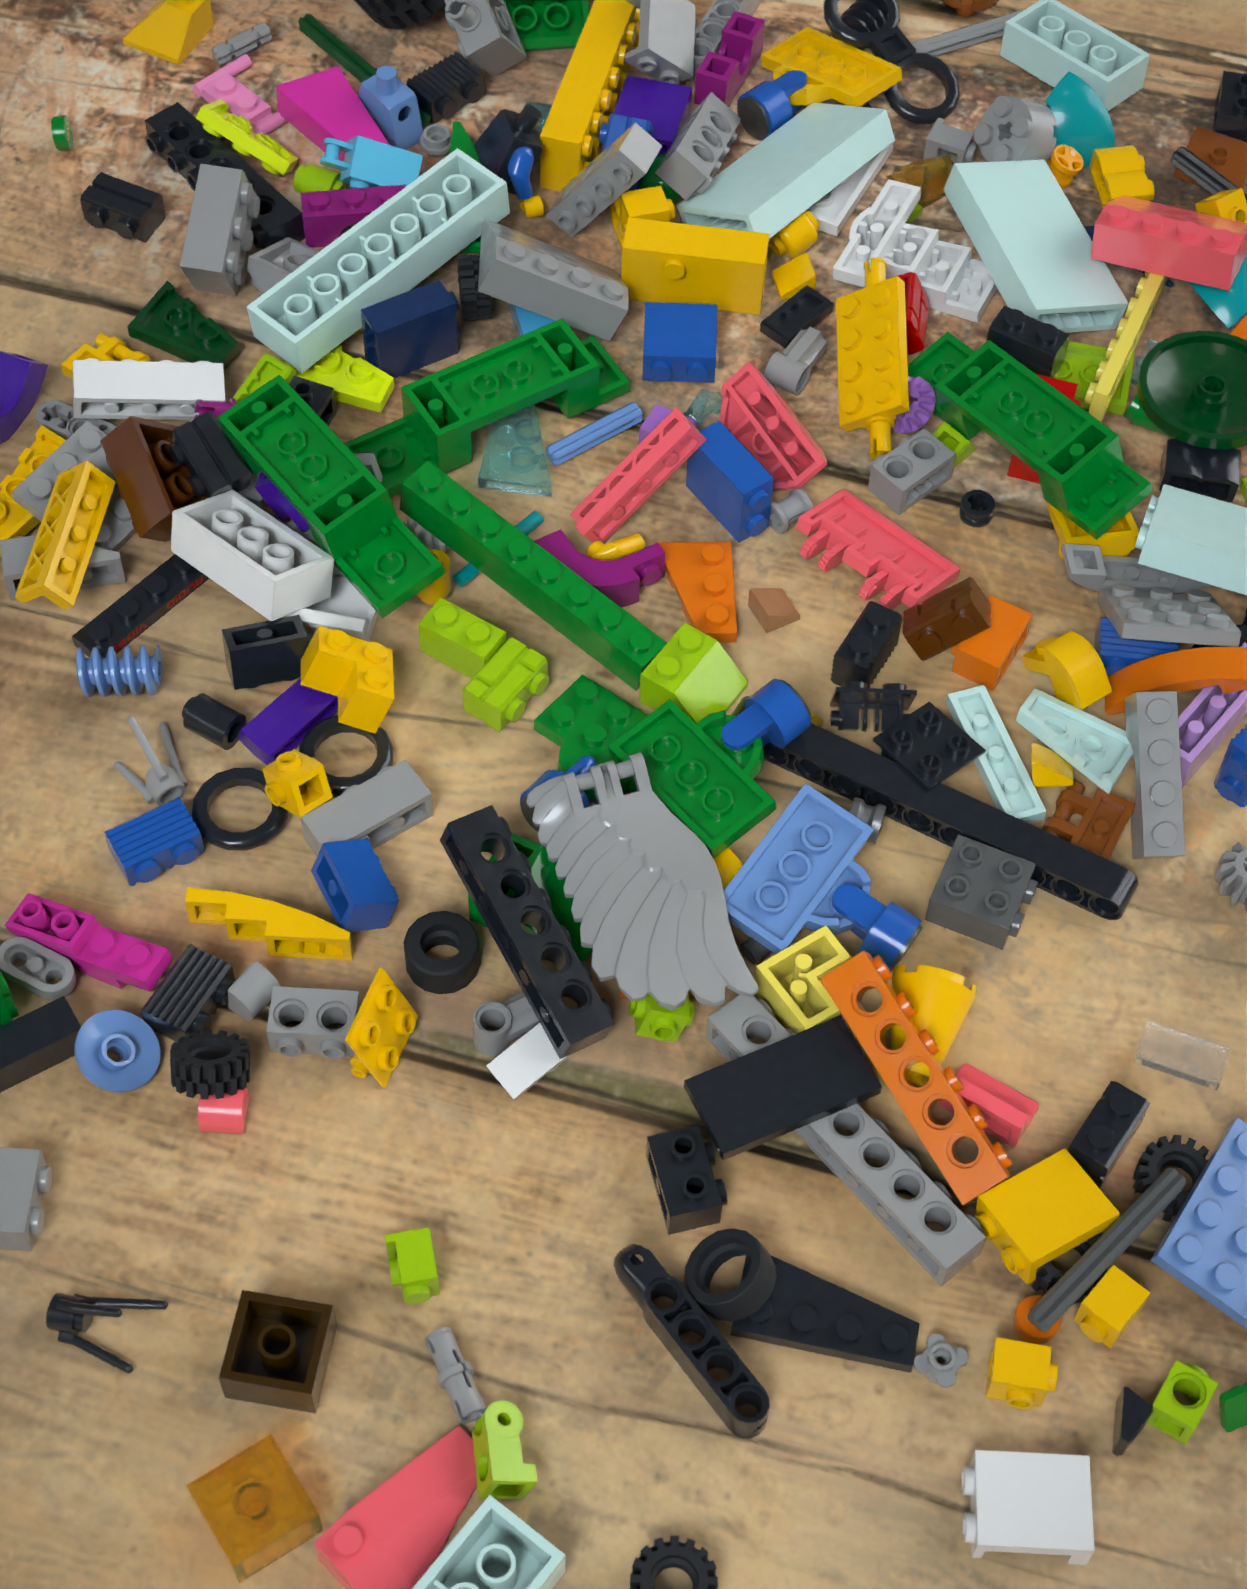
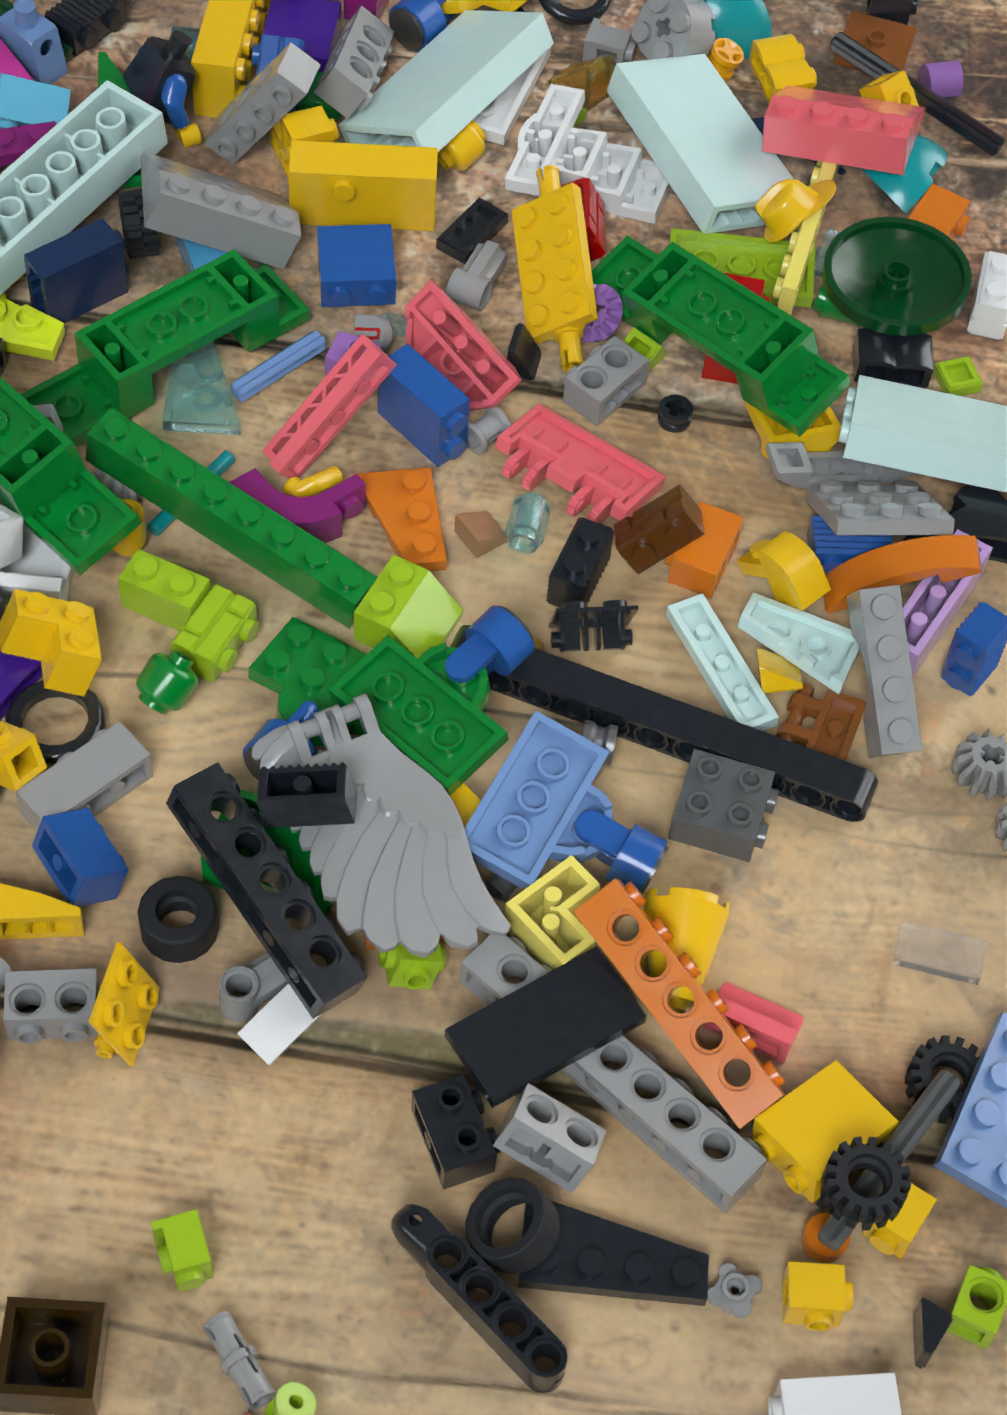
camera: 10 degrees left, 0 degrees up
(436, 140) = (81, 72): light grey plate -> none
(455, 726) = (167, 681): none -> green head
(574, 844) = (307, 795): none -> black brick
(690, 404) = (375, 328): none -> light grey tile
(775, 1195) = (550, 1138): none -> light grey brick
(794, 276) = (465, 189): yellow slope -> none
(819, 603) = (527, 523): none -> clear light blue brick
(834, 438) = (524, 353): none -> black slope
(928, 745) = (654, 660): black hinge -> none
(1029, 341) = (711, 239): black brick -> none
(1068, 1291) = (880, 1162): none -> black tyre
(1108, 1131) = (876, 1037): black brick -> none
(1111, 312) = (790, 204): none -> yellow piece

